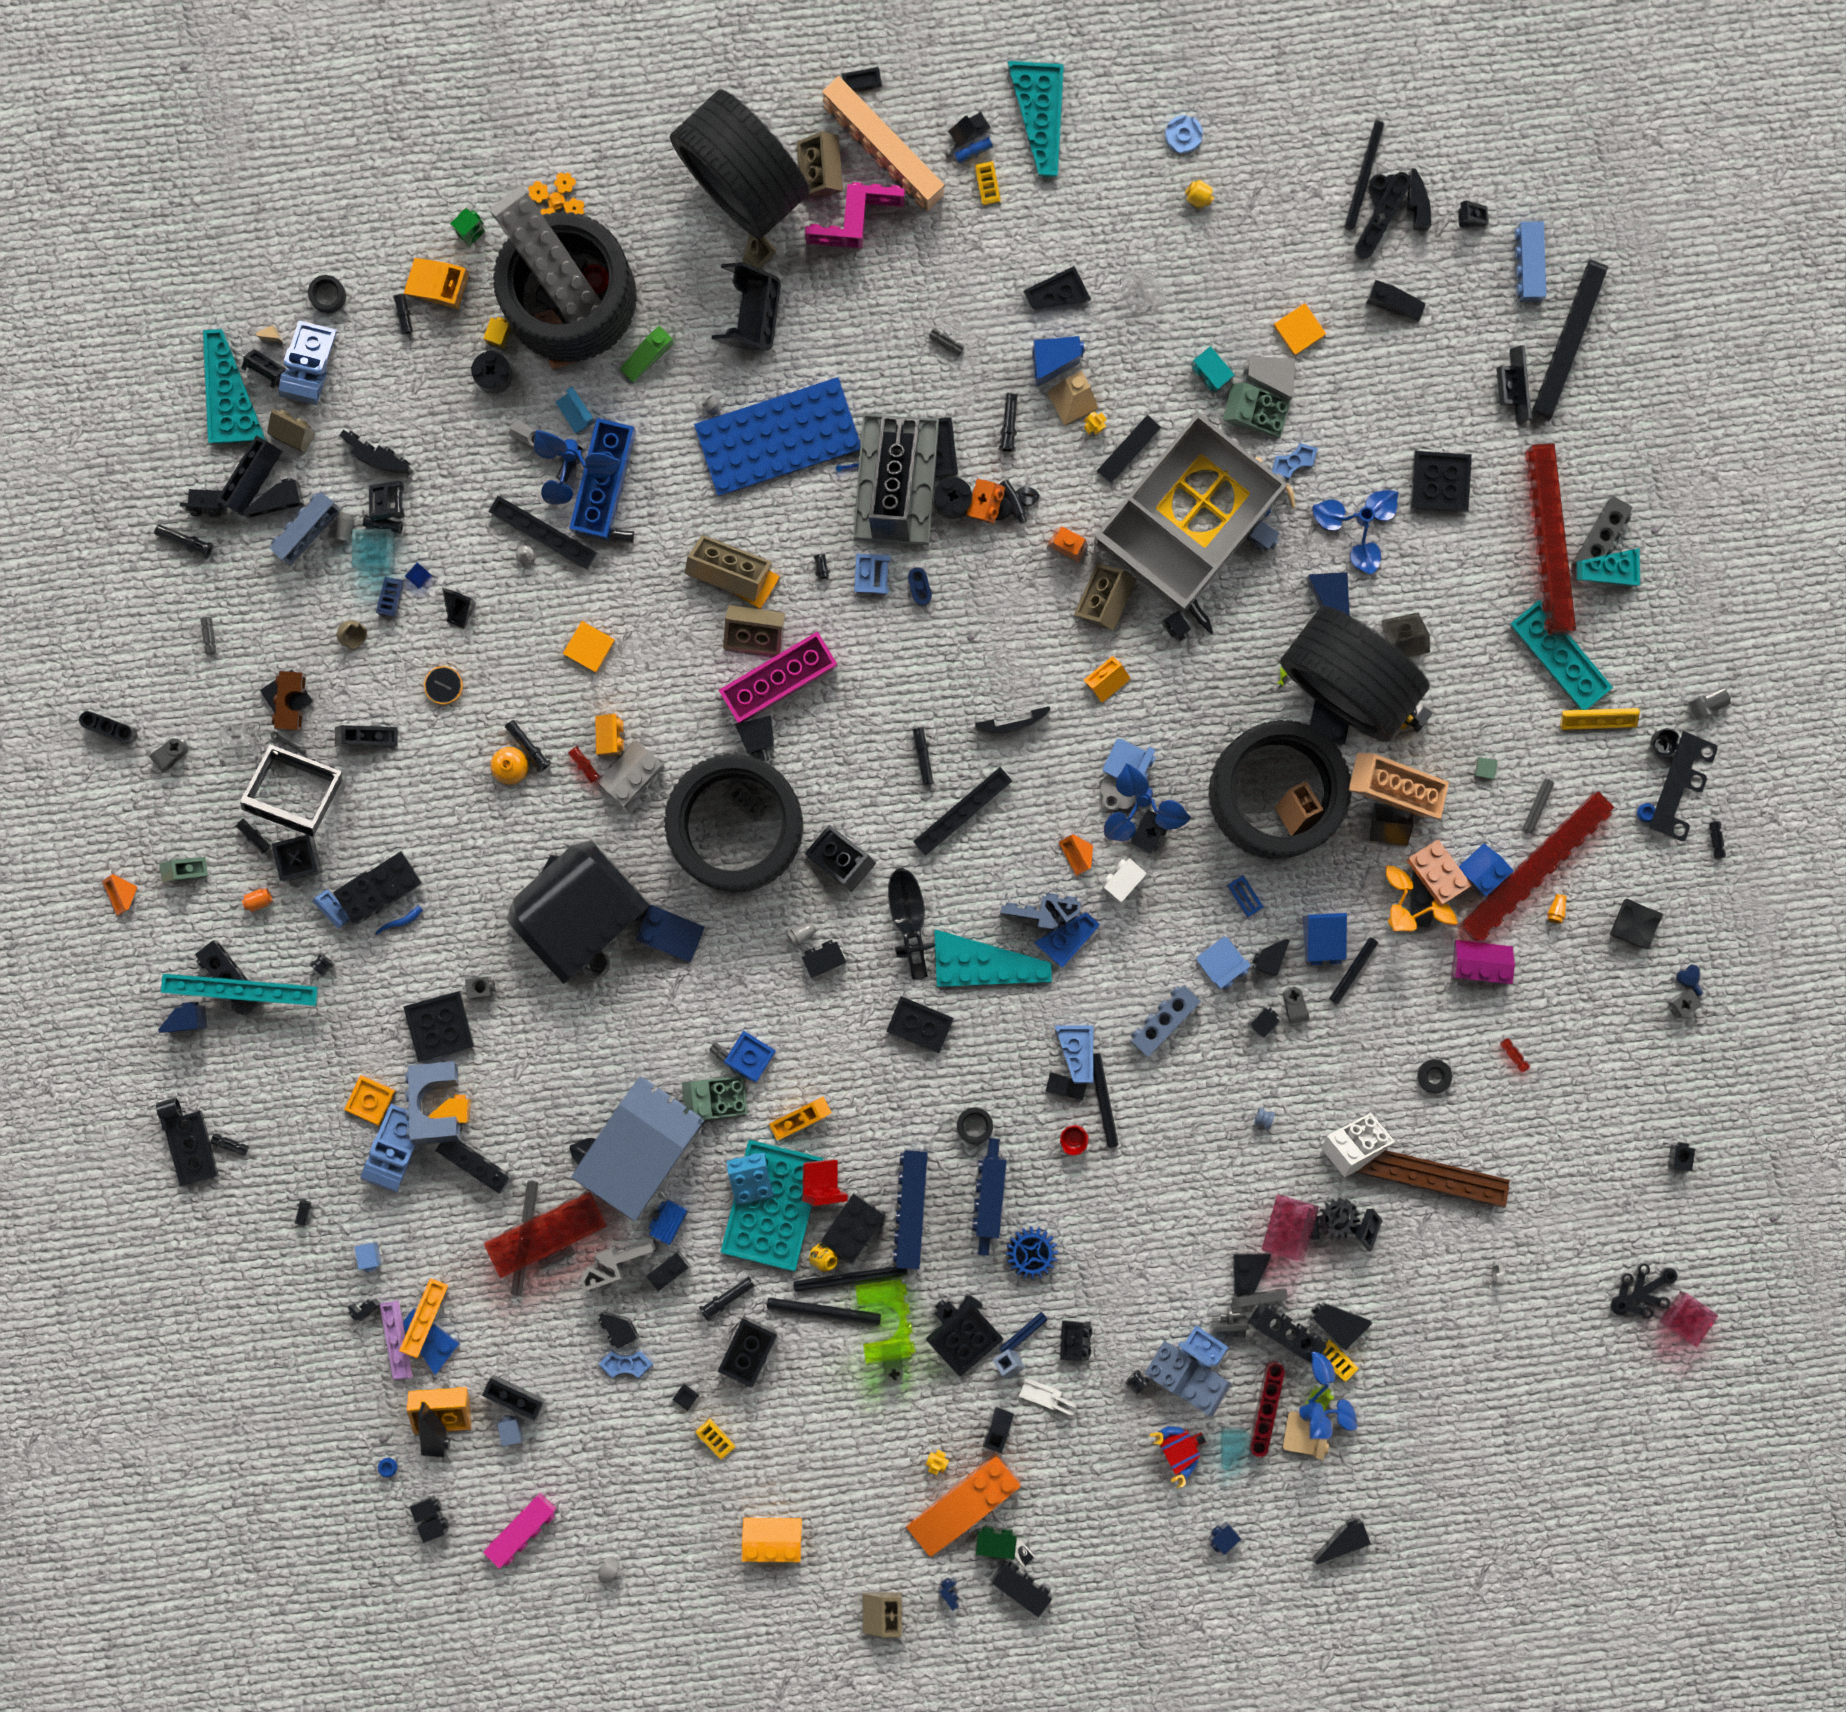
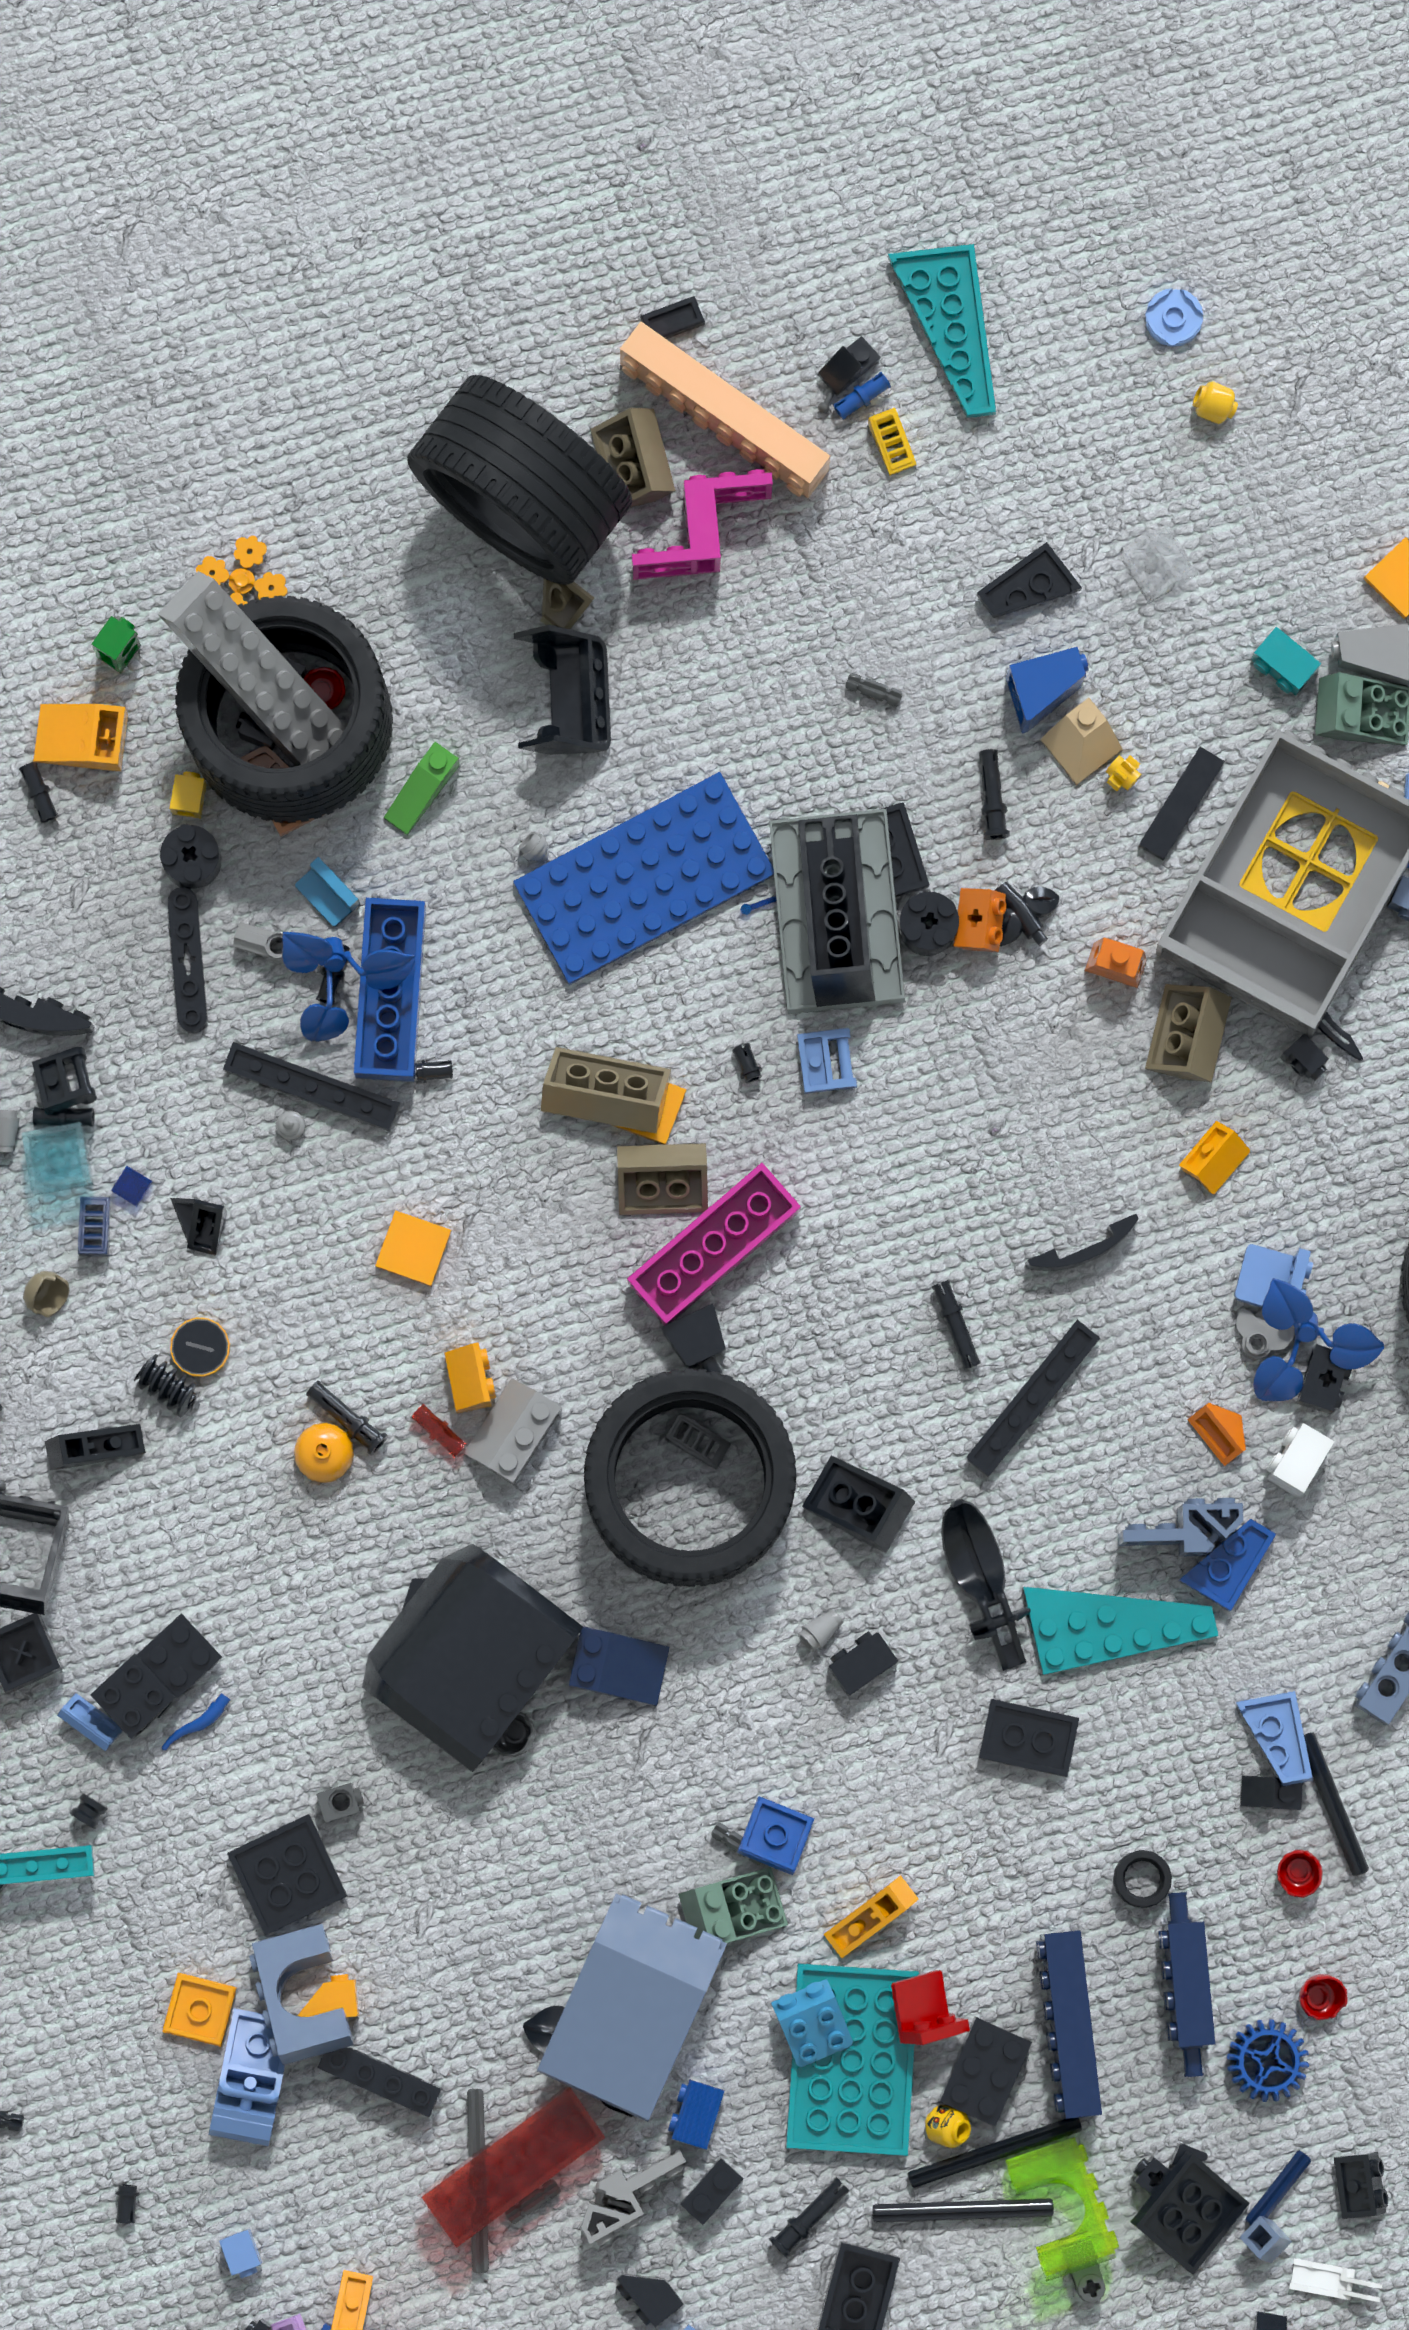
camera: 10 degrees left, 5 degrees down
(417, 706) = (167, 1386): none -> black piece
(480, 419) = (190, 988): none -> black piece
(919, 587) = (903, 1068): dark blue plate -> none
(1074, 1219) = (1322, 1996): none -> red hair

